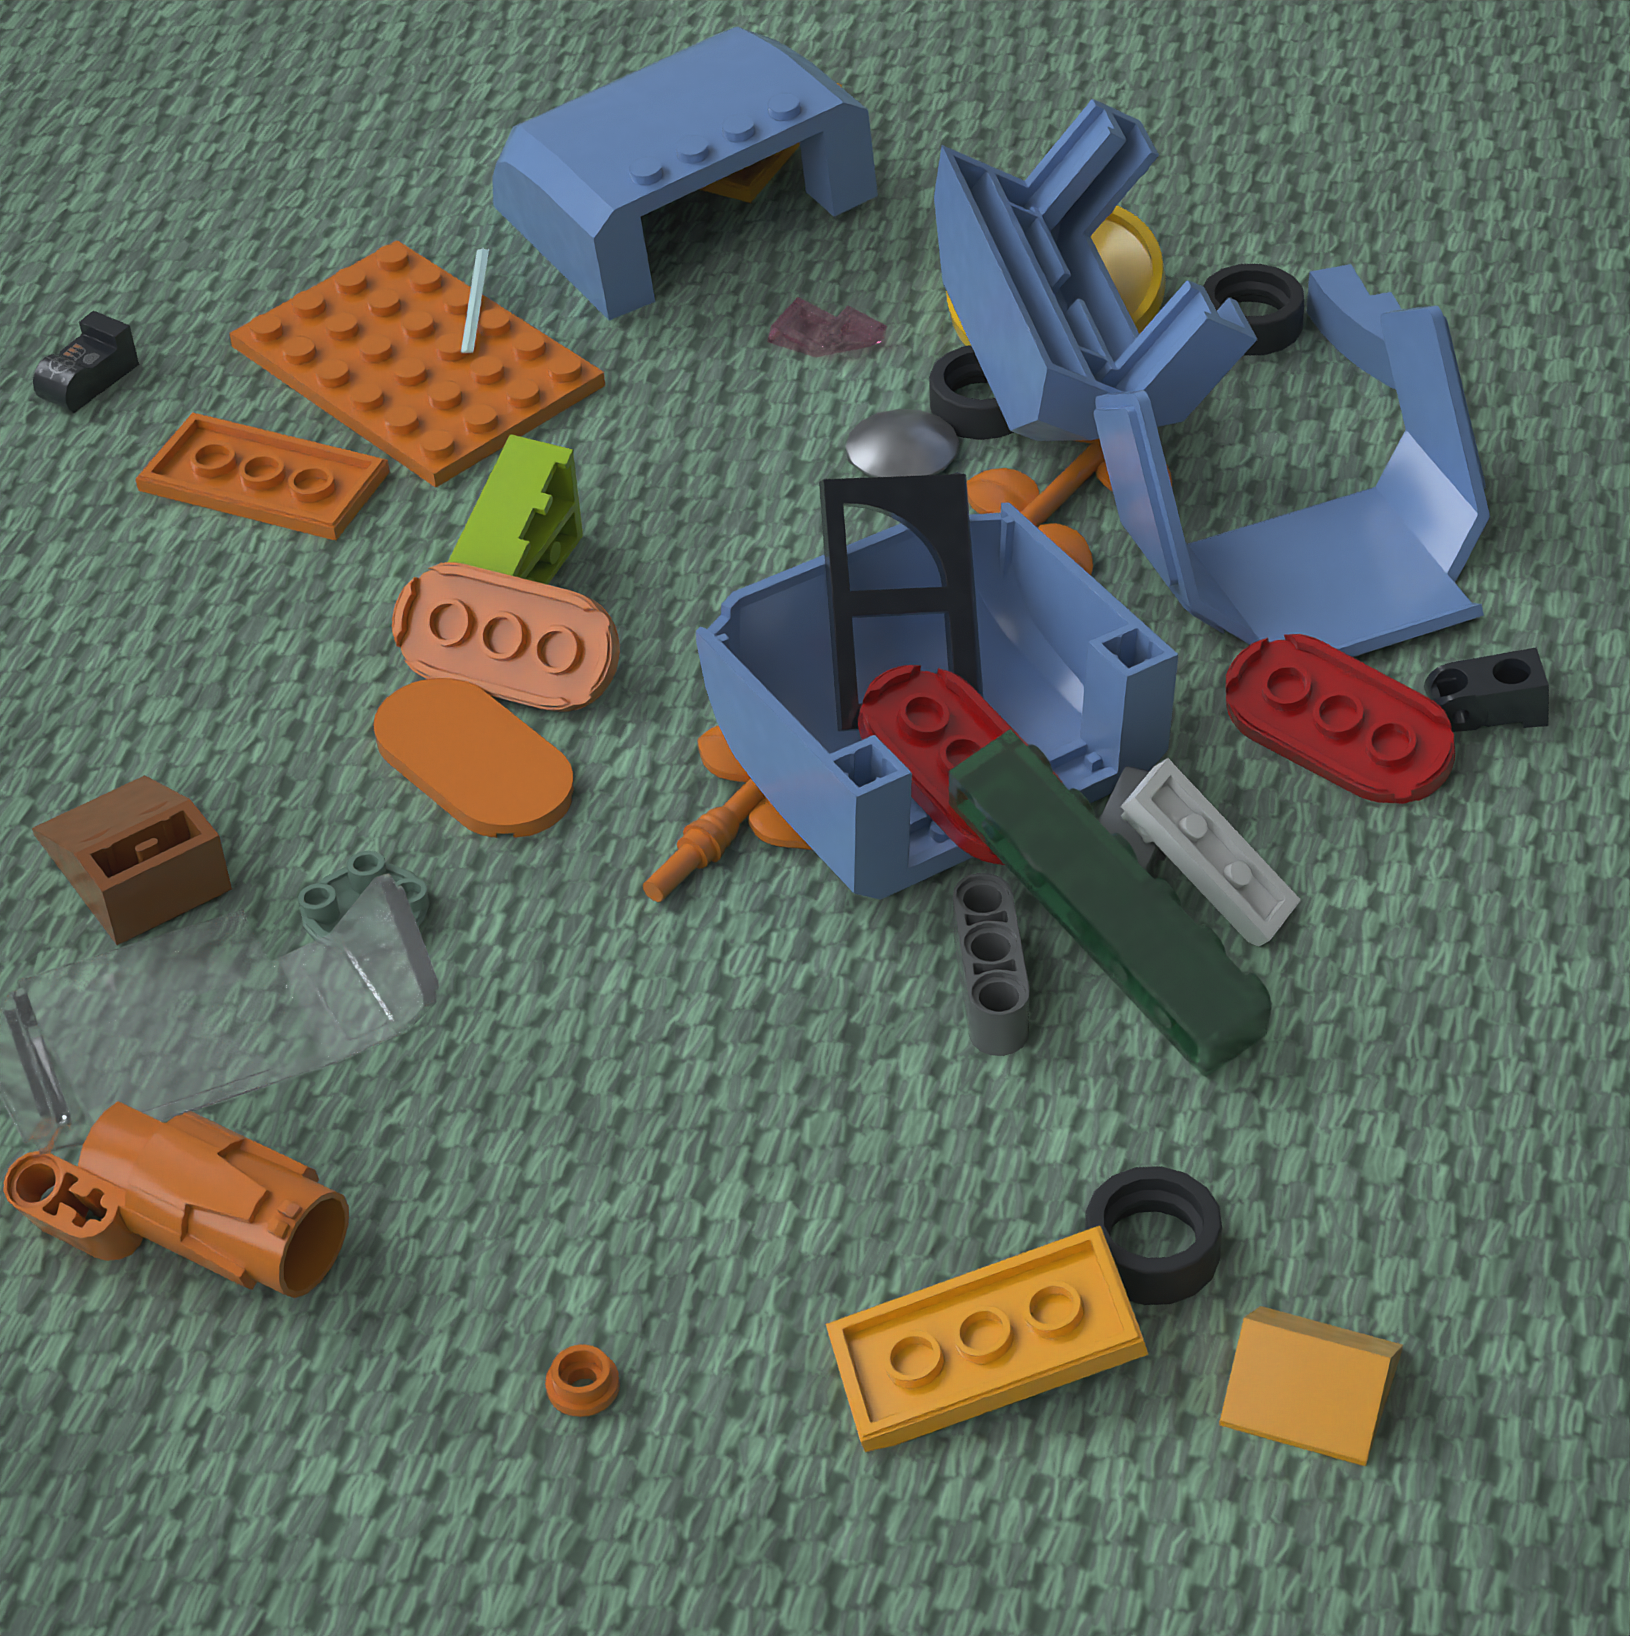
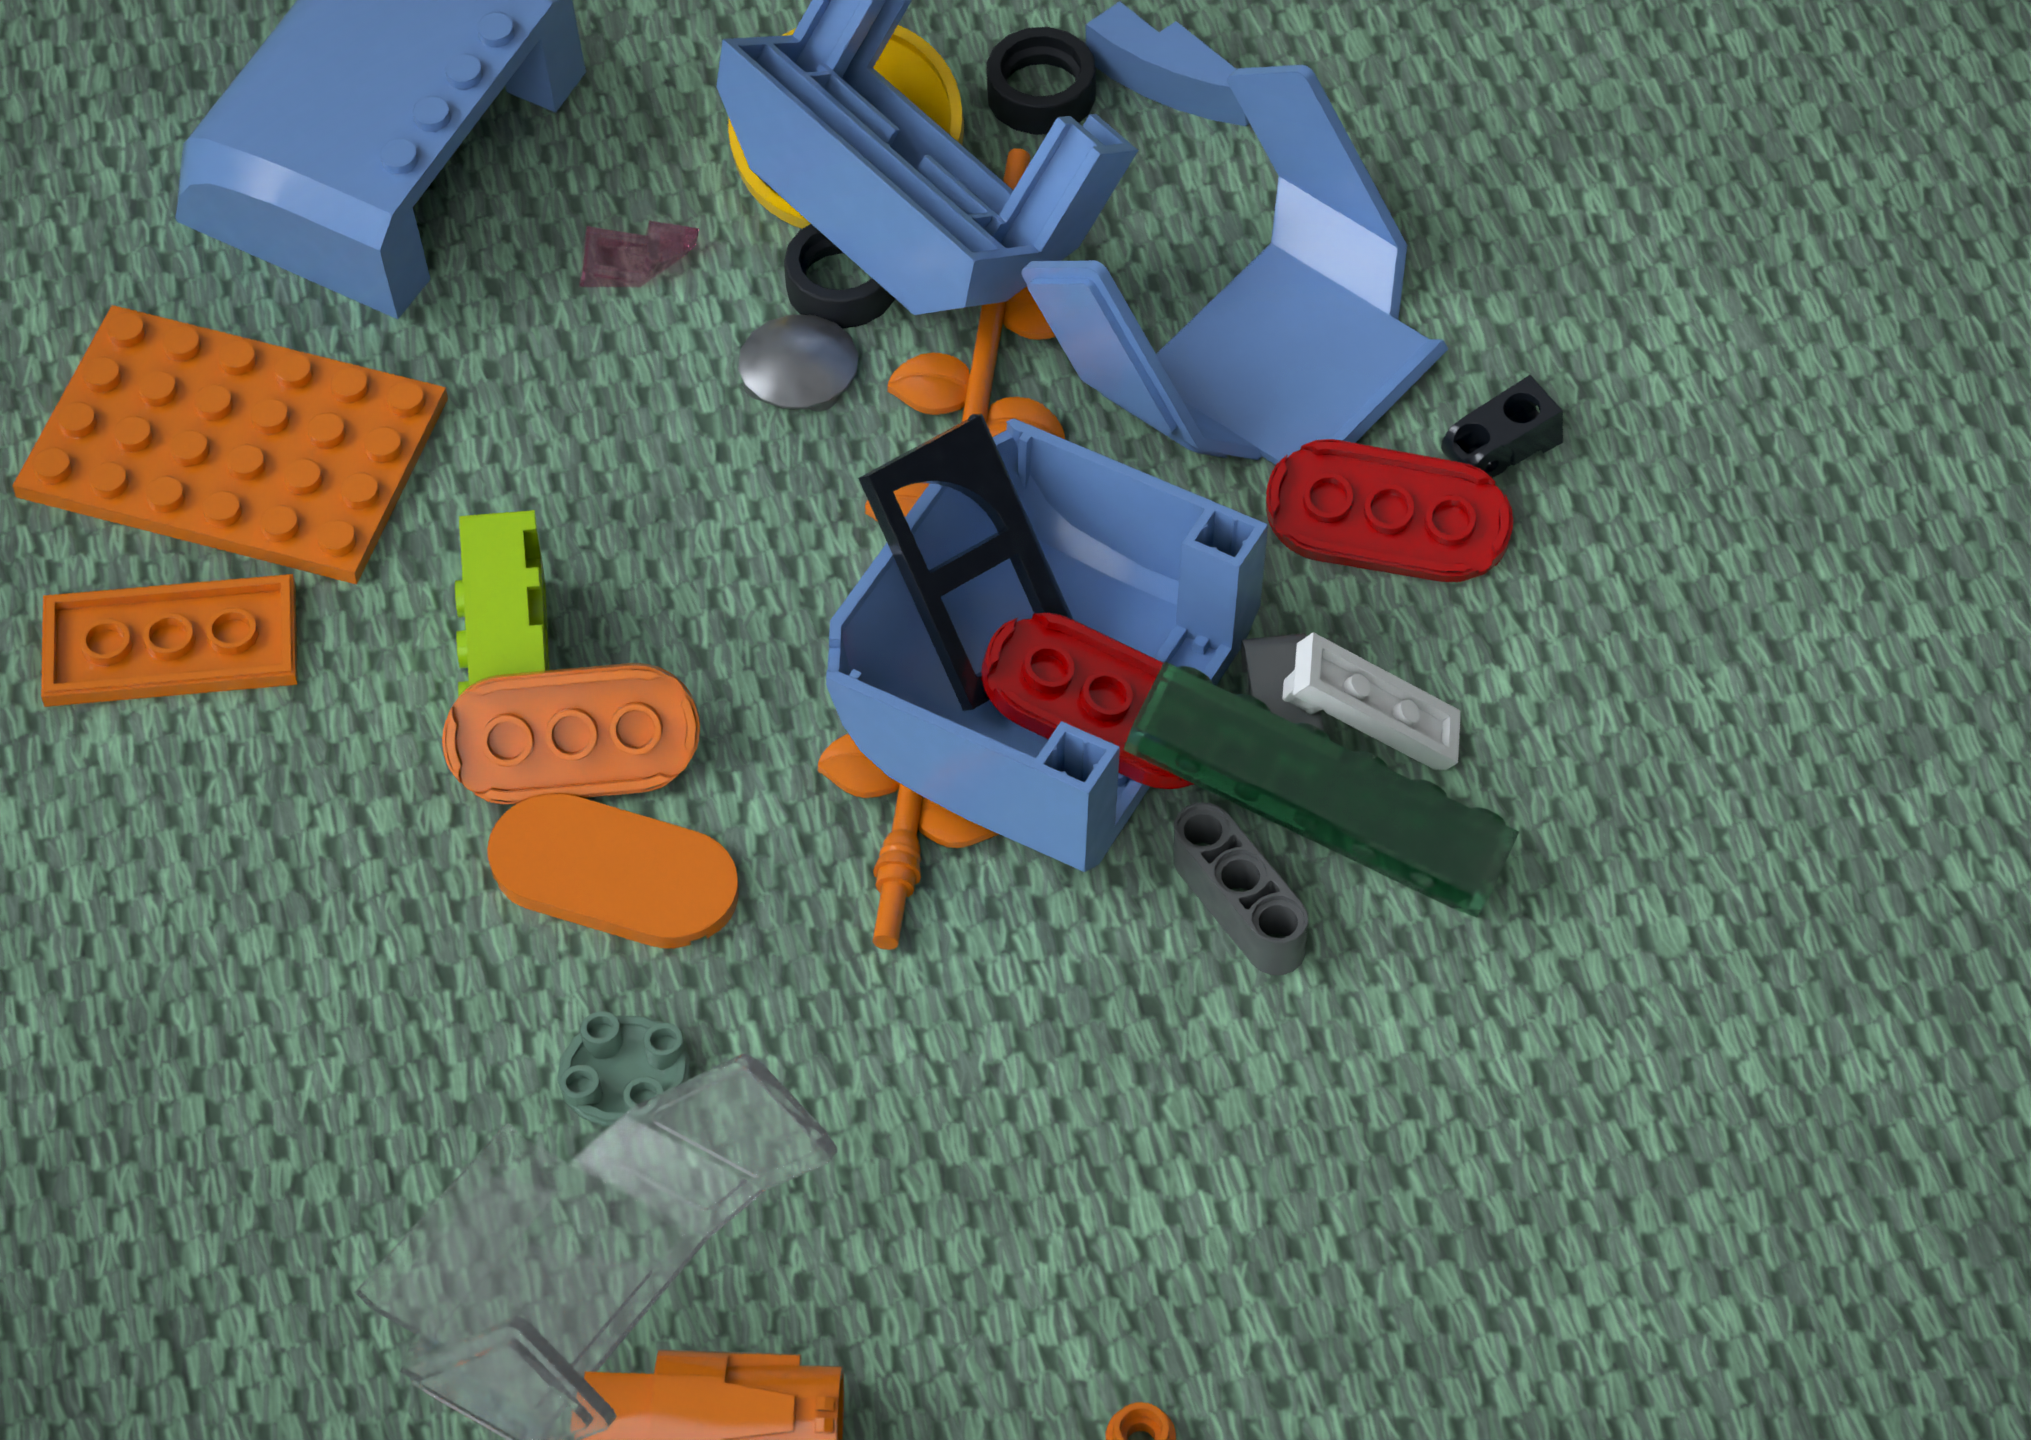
camera: 30 degrees left, 10 degrees up
(137, 856) = (363, 1108): dark orange slope -> none
(474, 301) = (259, 353): light aqua piece -> none
(985, 1340) = (1459, 1246): light orange tile -> none
(1168, 1192) = (1521, 1131): black tyre -> none
(1309, 1384) = (1734, 1163): light orange slope -> none

